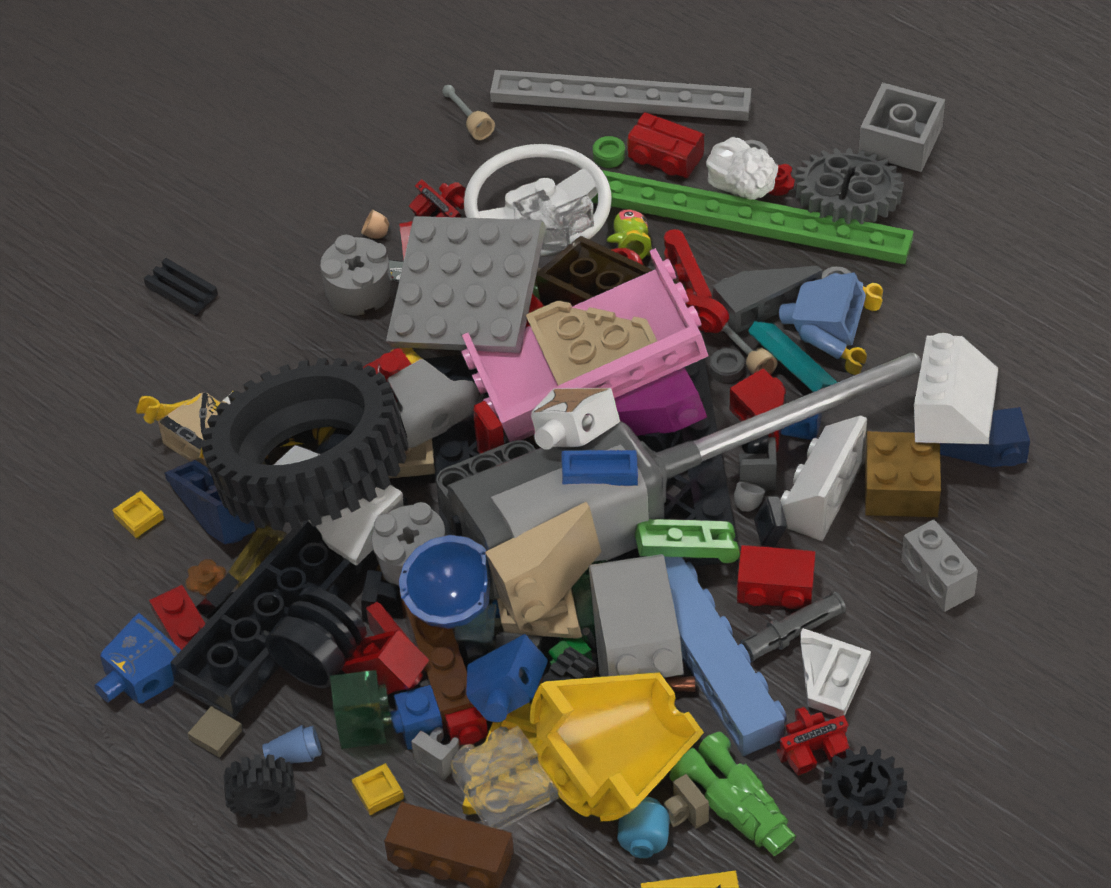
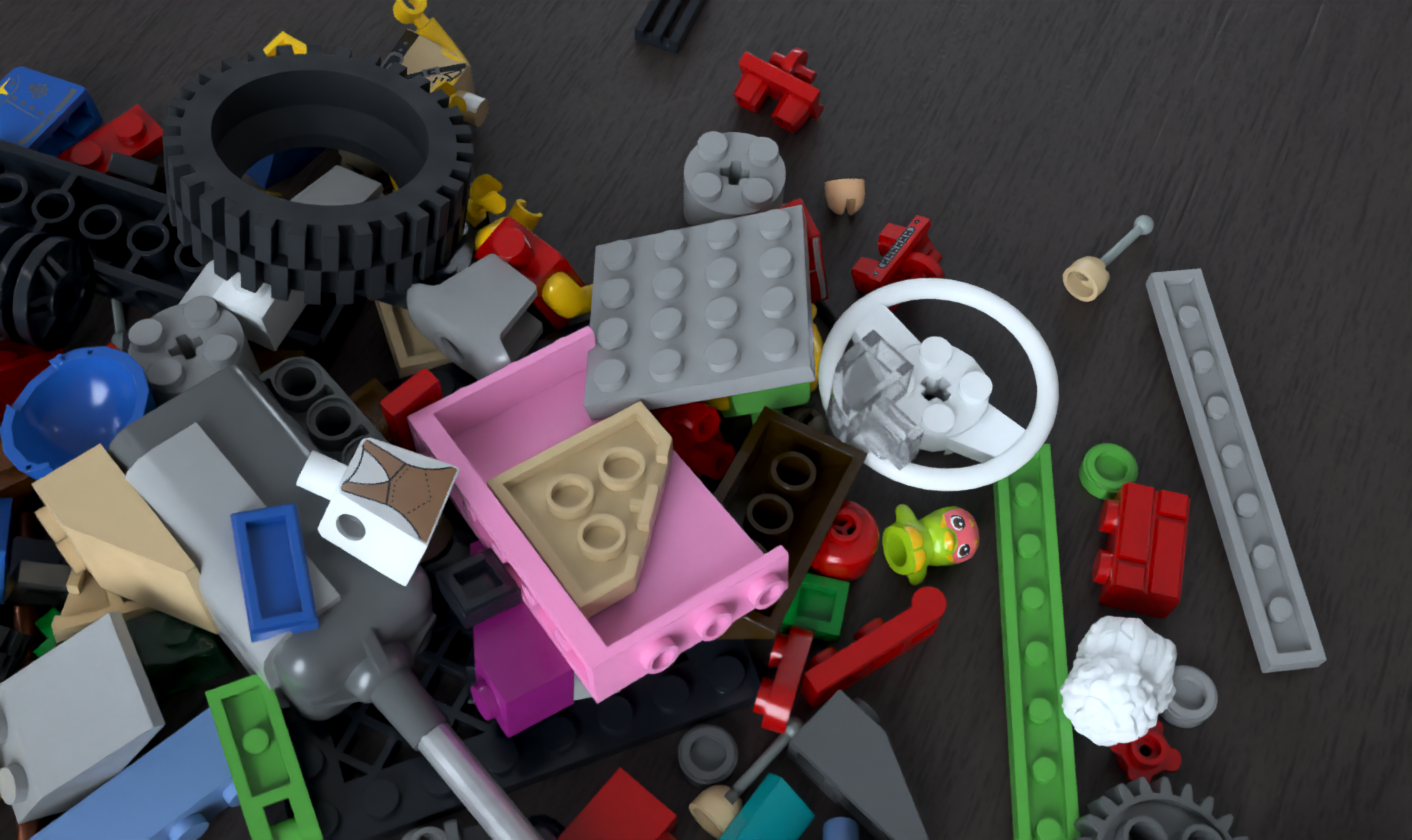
camera: 70 degrees right, 10 degrees up
(275, 233) = (784, 80): none -> red hips
(628, 402) = (478, 588): none -> black tile

